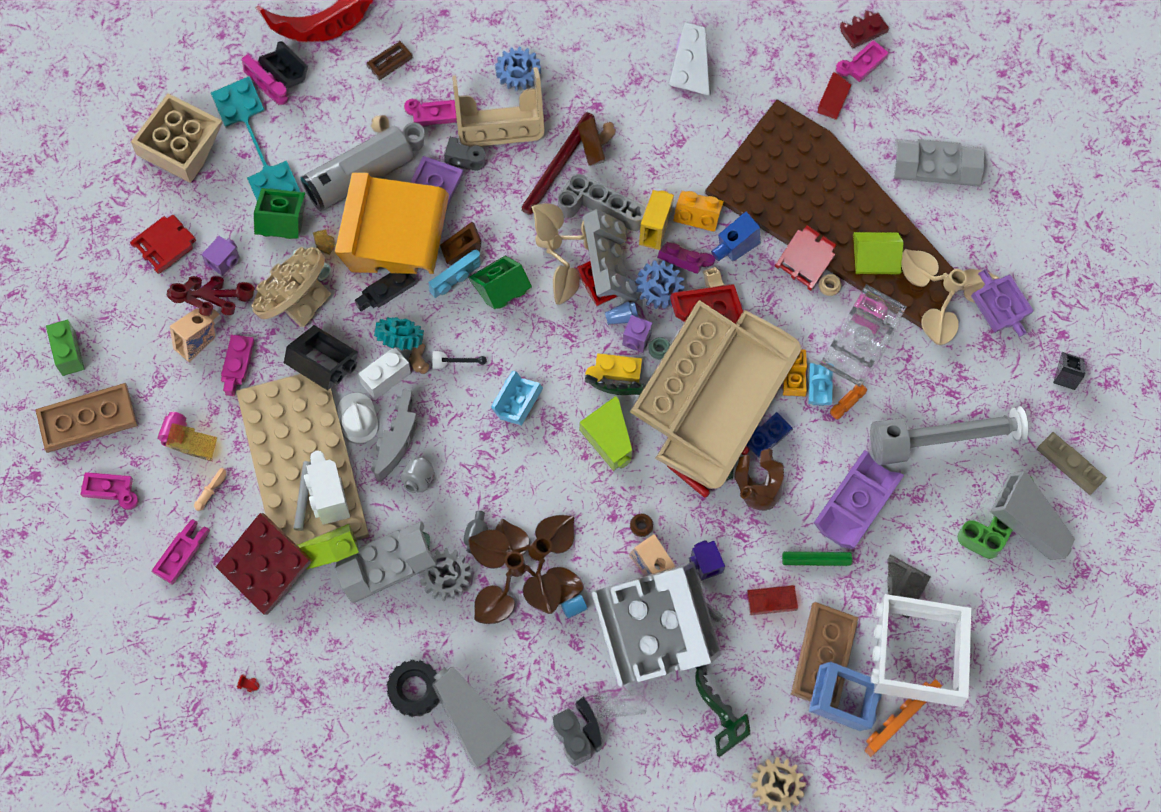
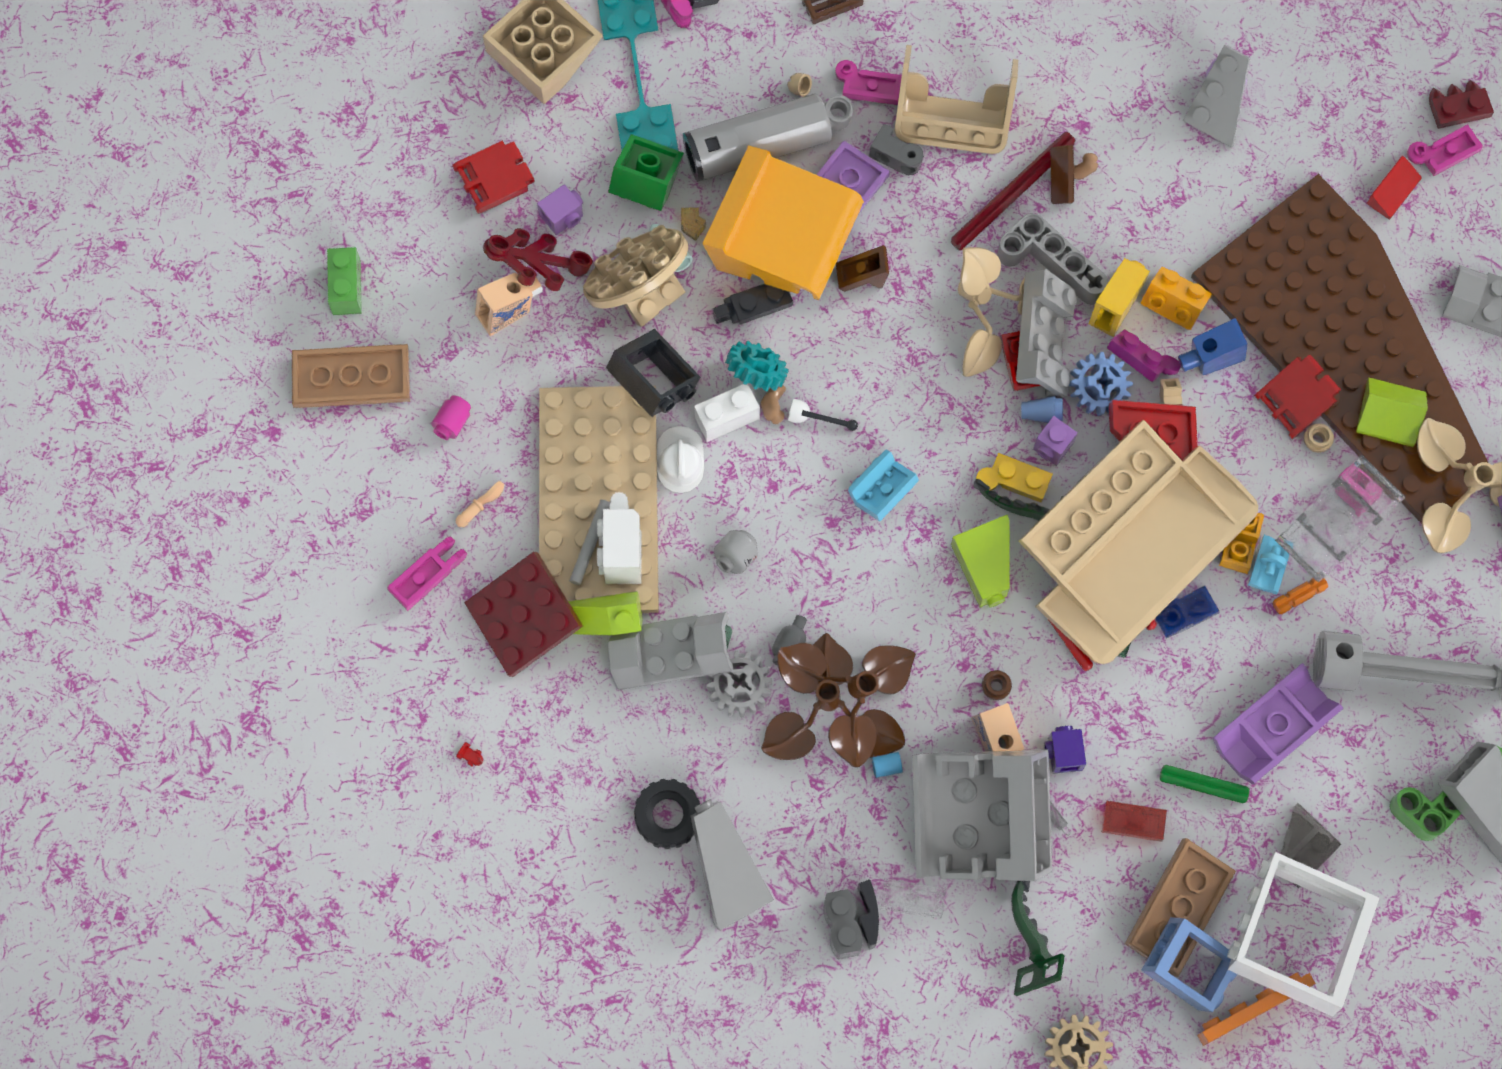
camera: 15 degrees right, 5 degrees up
(111, 488) = (359, 471): dark pink hinge -> none
(190, 442) = (470, 440): clear yellow slope -> none
(236, 362) = (548, 352): dark pink hinge -> none
(395, 442) = (719, 504): light grey slope -> none
(456, 273) = (846, 305): medium azure hinge -> none
(501, 282) = (900, 330): green slope -> none
(517, 68) = (995, 49): medium blue gear -> none
(658, 342) = (1077, 457): sand green plate -> none
(765, 495) = (1157, 687): reddish brown piece -> none

